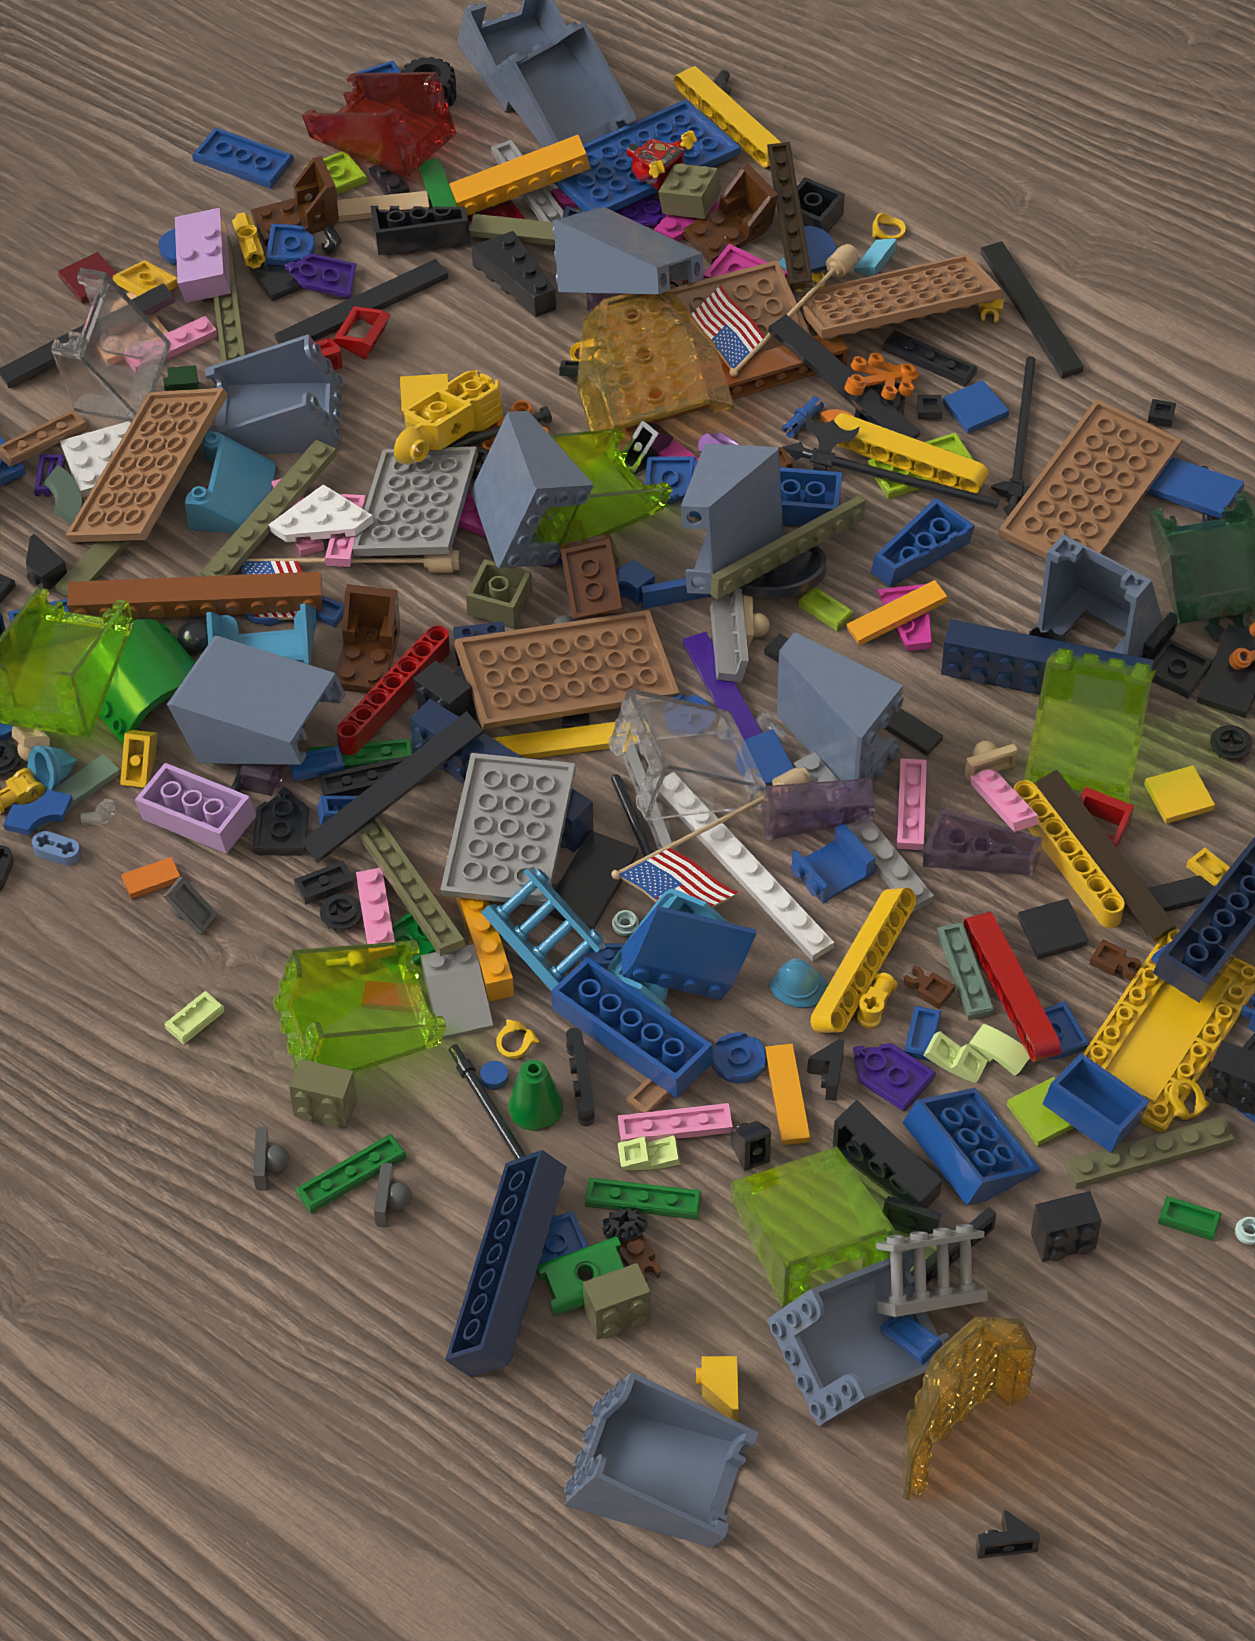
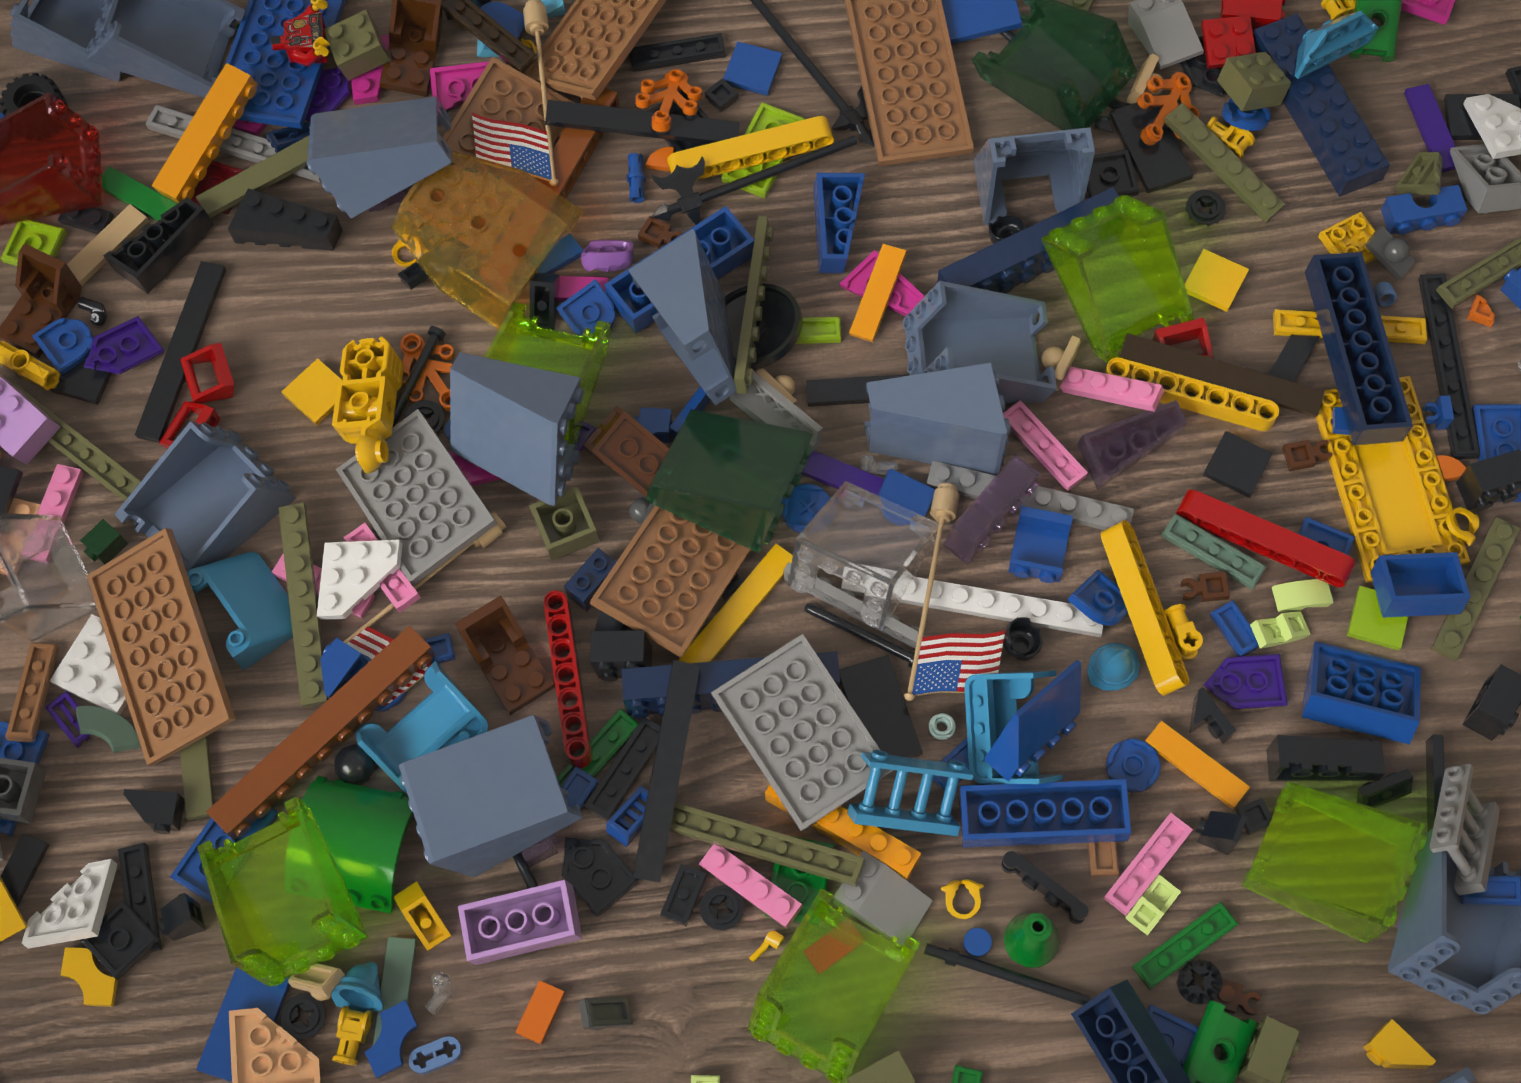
camera: 40 degrees left, 15 degrees up
(249, 561) = (339, 665): none -> blue slope
(644, 634) = (731, 475): none -> clear green windscreen
(688, 427) = (562, 254): none -> blue tile
(747, 908) = (1022, 639): none -> black hair
(789, 1152) = (1257, 816): none -> black plate
(834, 929) = (1100, 600): none -> blue tile
(946, 697) = (979, 326): none -> sand blue windscreen

